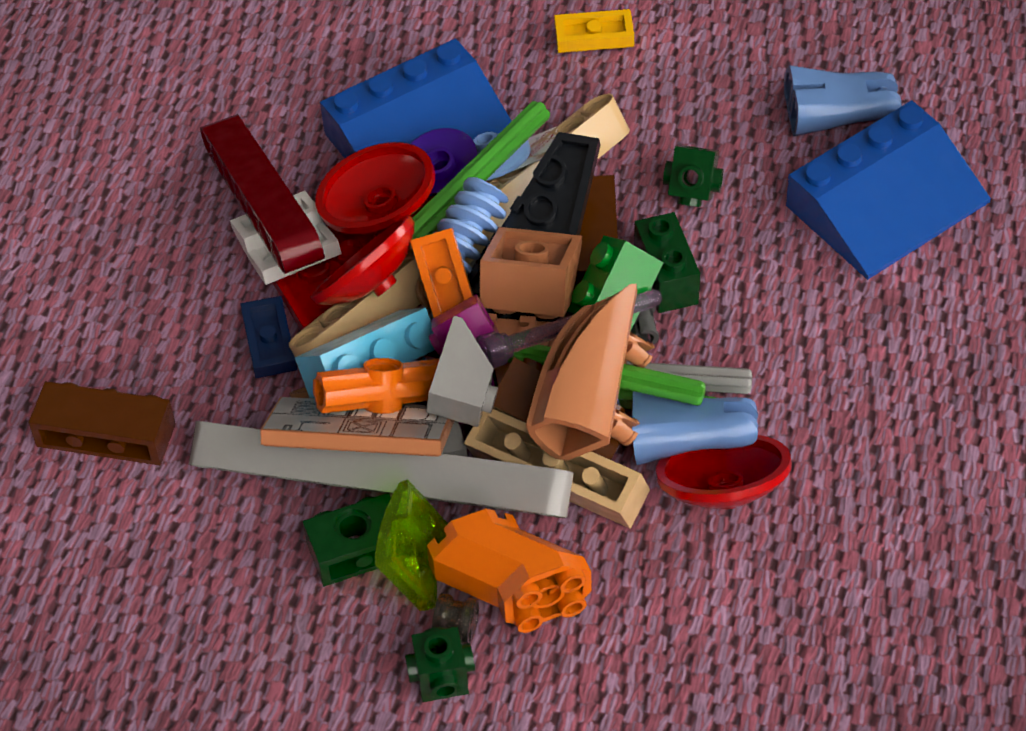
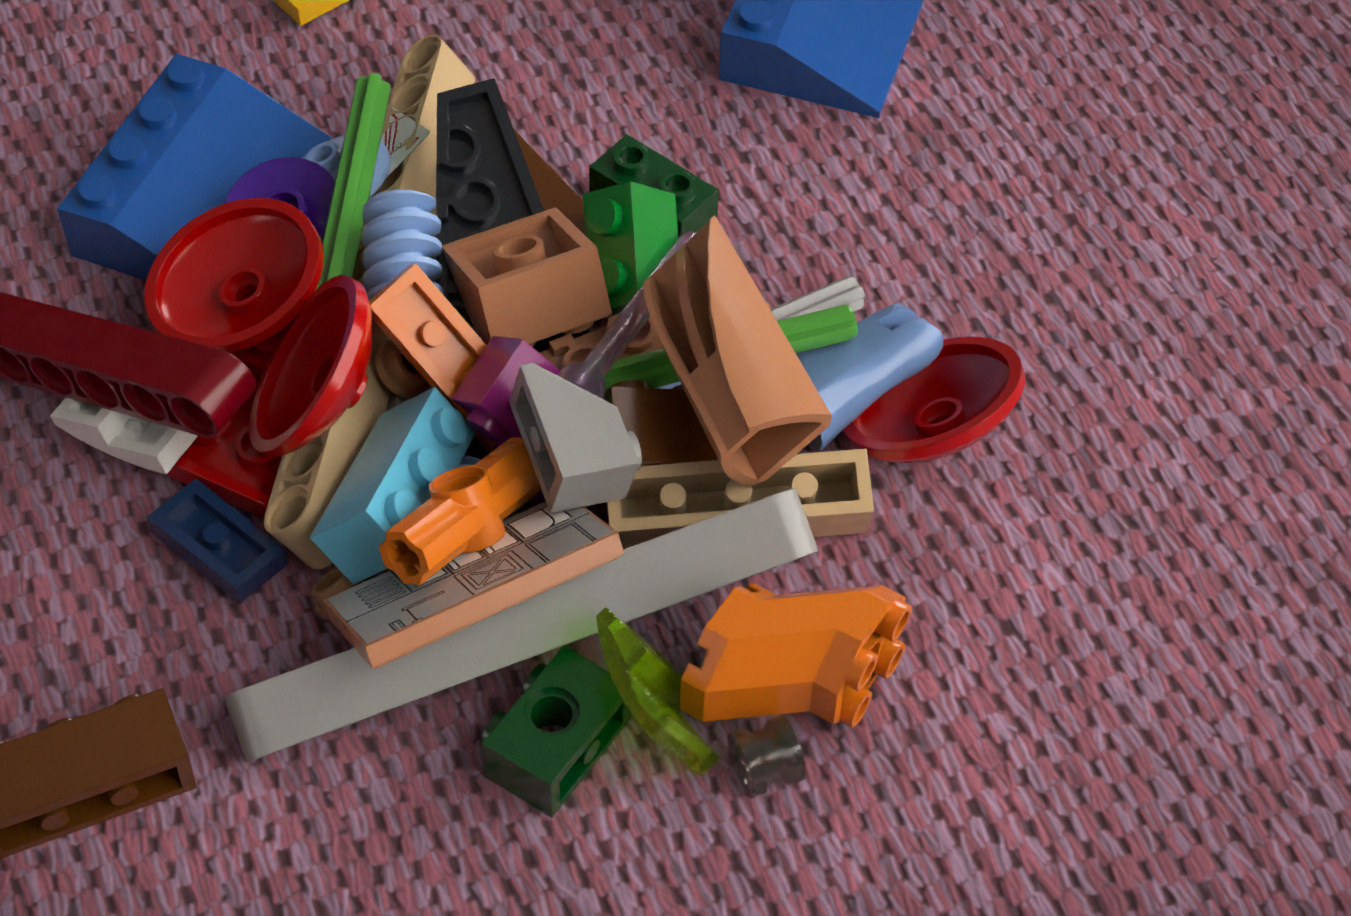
camera: 40 degrees left, 0 degrees up
(440, 663) = (800, 821): dark green brick -> none
(704, 163) = (597, 68): dark green brick -> none

